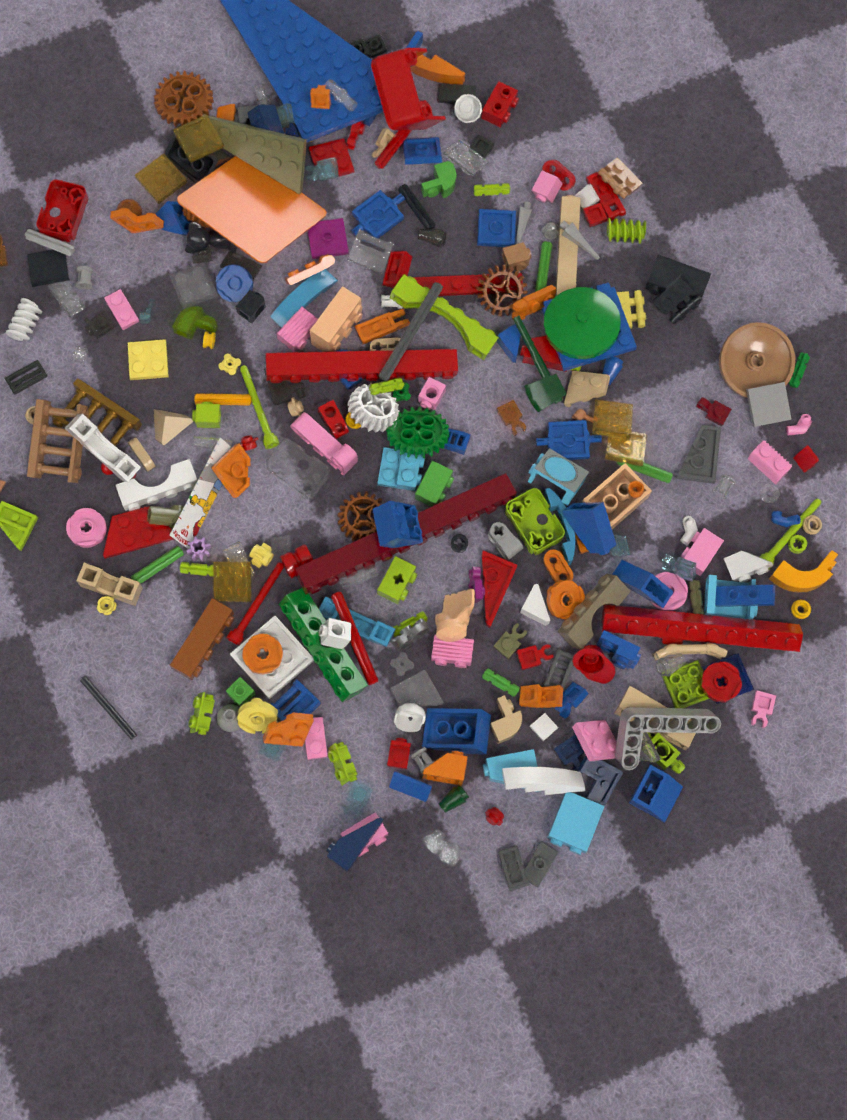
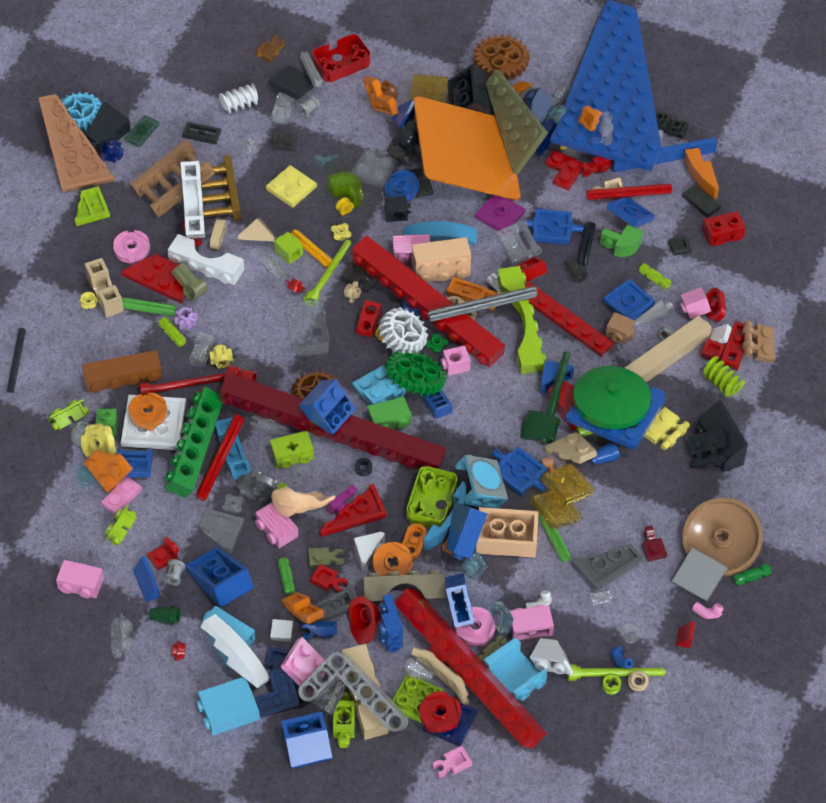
camera: 50 degrees right, 20 degrees down
(121, 309) = (310, 144): bright pink plate -> none
(198, 138) = (476, 78): clear yellow plate -> none
(200, 499) = (229, 287): sticker -> none
(232, 581) = (182, 352): clear yellow plate -> none
(233, 470) = (264, 291): orange plate -> none
(310, 269) = (450, 216): hinge -> none
(324, 444) = (345, 329): bright pink beam -> none
(326, 170) = (546, 171): clear light blue plate -> none
(335, 633) = (207, 436): white brick -> none
(349, 847) = (61, 569): dark blue slope -> none
(358, 797) = (104, 556): clear light blue plate -> none
(386, 386) = (427, 325): lime axle -> none
(399, 92) = (645, 153): red windscreen -> none
(407, 710) = (196, 532): white hair -> none
(447, 769) = (181, 587): orange slope -> none
(465, 157) = (656, 238): clear plate -> none
(468, 108) = (695, 212): white hair -> none
(486, 284) = (589, 334): dark orange gear -> none
(506, 543) = (395, 490): light grey piece -> none
(508, 725) = (258, 604): tan brick -> none
(511, 415) = (496, 421): clear orange plate -> none
(513, 868) = (151, 693): dark grey plate -> none
(533, 302) = (592, 359): orange hinge -> none
(540, 863) = (172, 710): dark grey plate -> none
(543, 265) = (634, 352): bright green axle -> none
(575, 236) = (676, 342): light grey piece -> none
(639, 489) = (523, 526): orange hinge -> none
(745, 595) = (525, 673): blue plate -> none
(769, 462) = (653, 610): bright pink brick -> none
(803, 581) = (588, 711): light orange arch -> none
(807, 609) = (562, 722): yellow plate -> none

